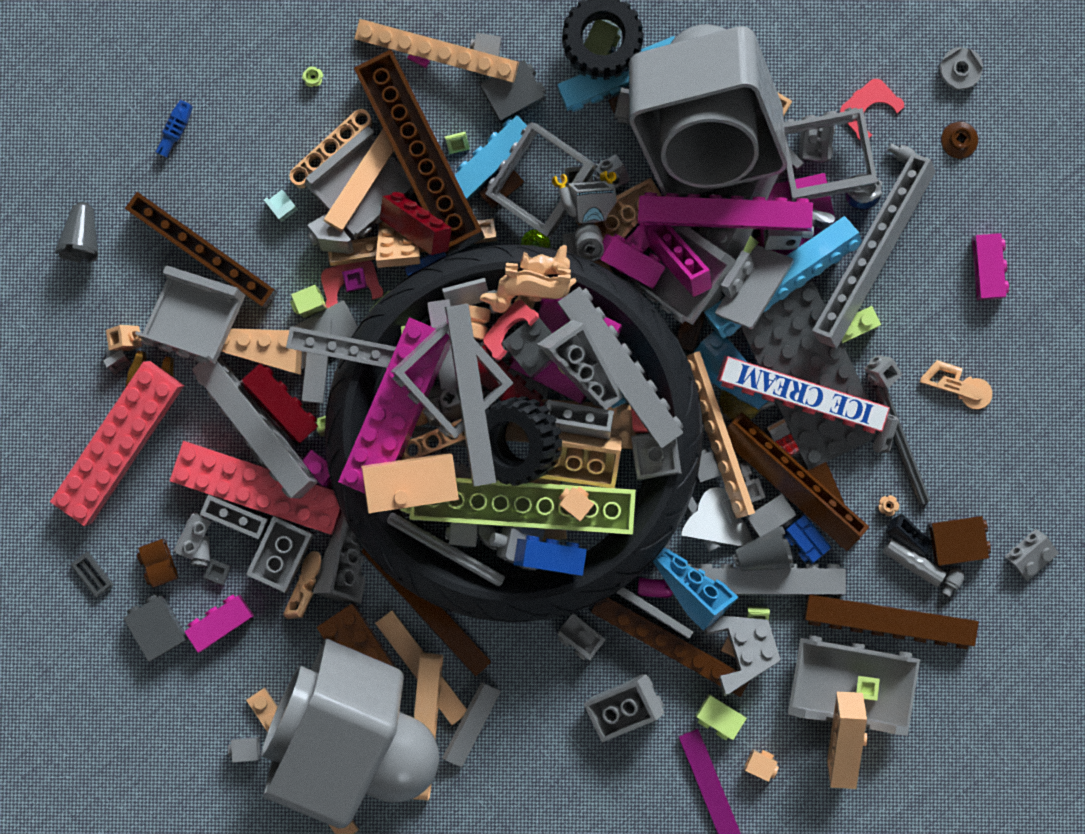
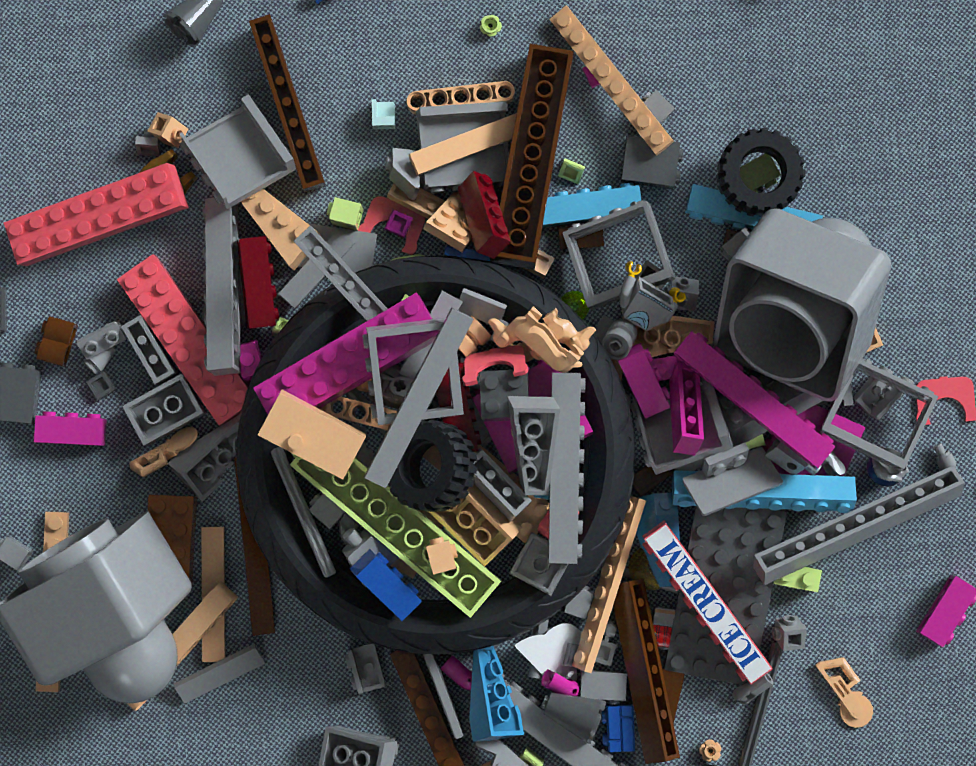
camera: 30 degrees right, 0 degrees up
(735, 540) = (560, 684): none -> dark pink piece

